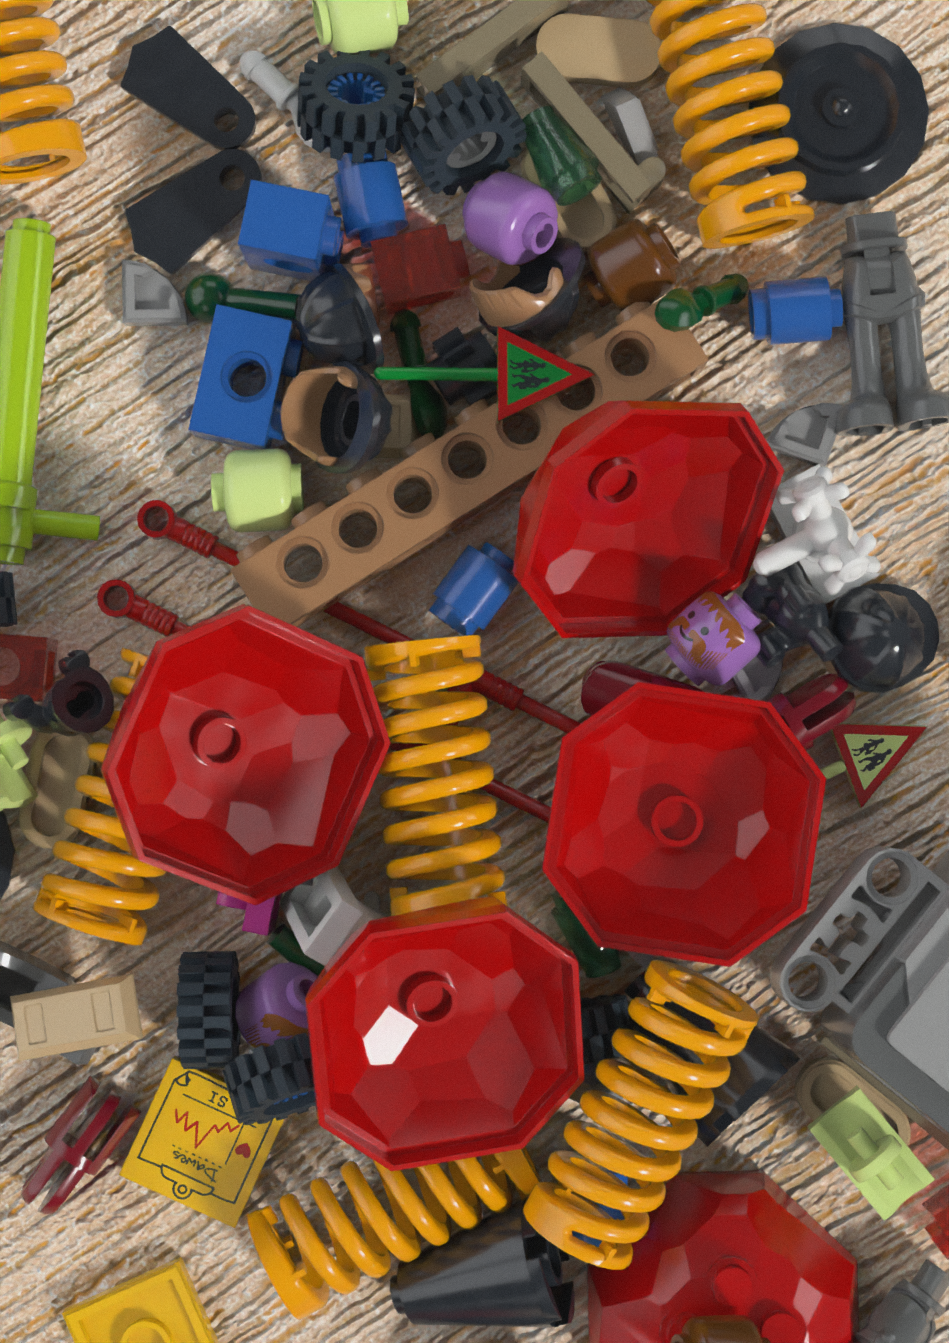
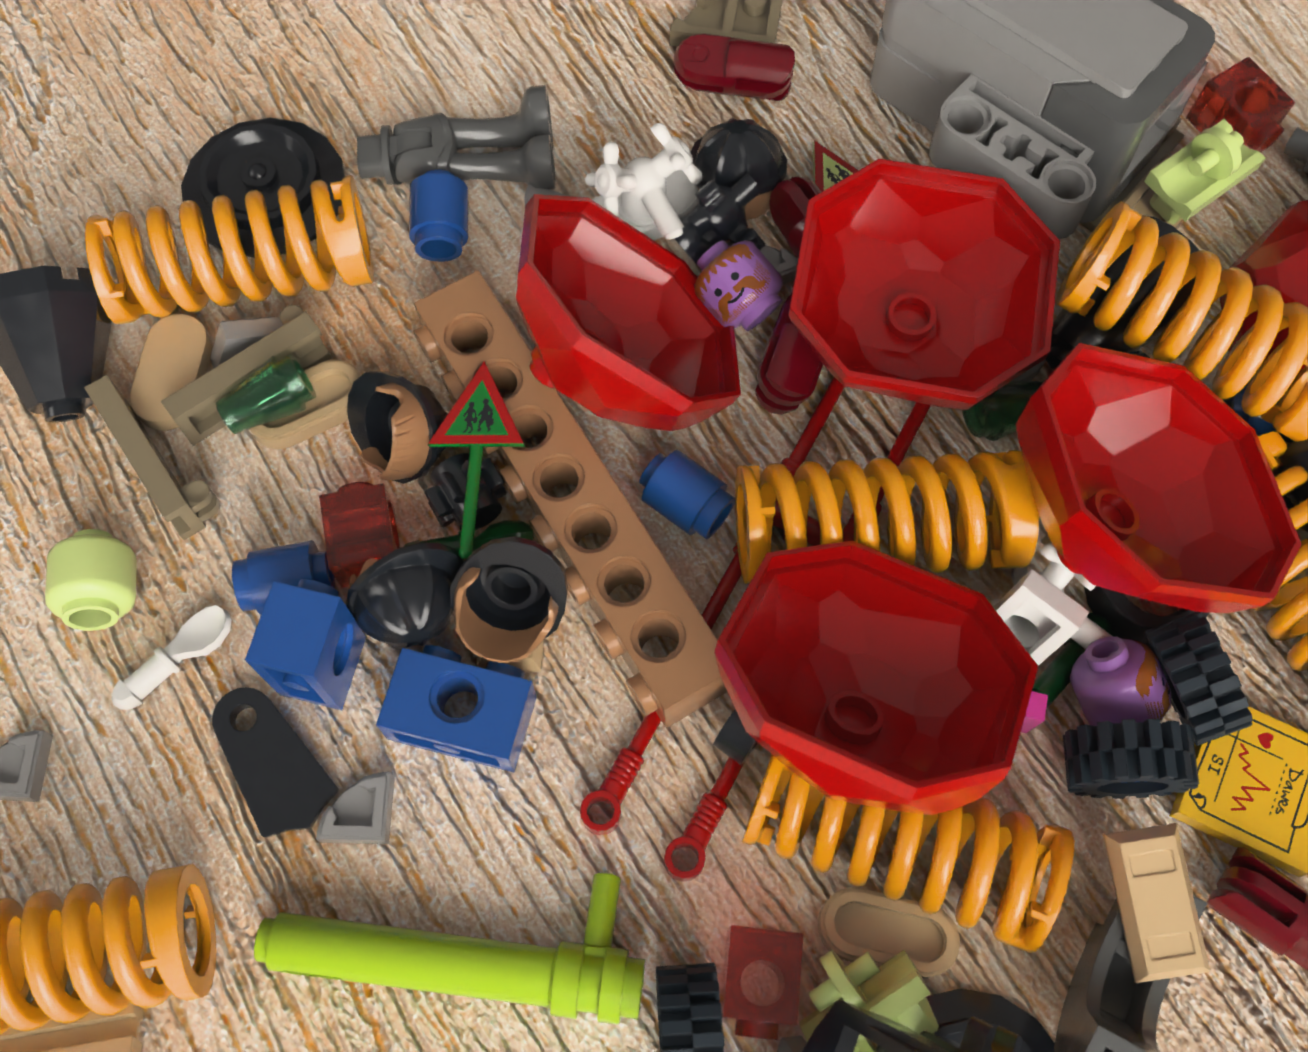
camera: 90 degrees left, 20 degrees down
(73, 704) = (810, 882): black piece -> none
(187, 89) = (141, 765): black piece -> none
(212, 289) = (365, 747): dark green bar -> none
(258, 490) = (576, 695): yellowish green head -> none
(329, 100) = (184, 580): black bush -> none
(463, 134) = (231, 476): black bush -> none
(510, 218) = (322, 442): medium lavender head -> none
(632, 265) = (381, 338): reddish brown head -> none
(684, 309) = (423, 283): dark green piece -> none

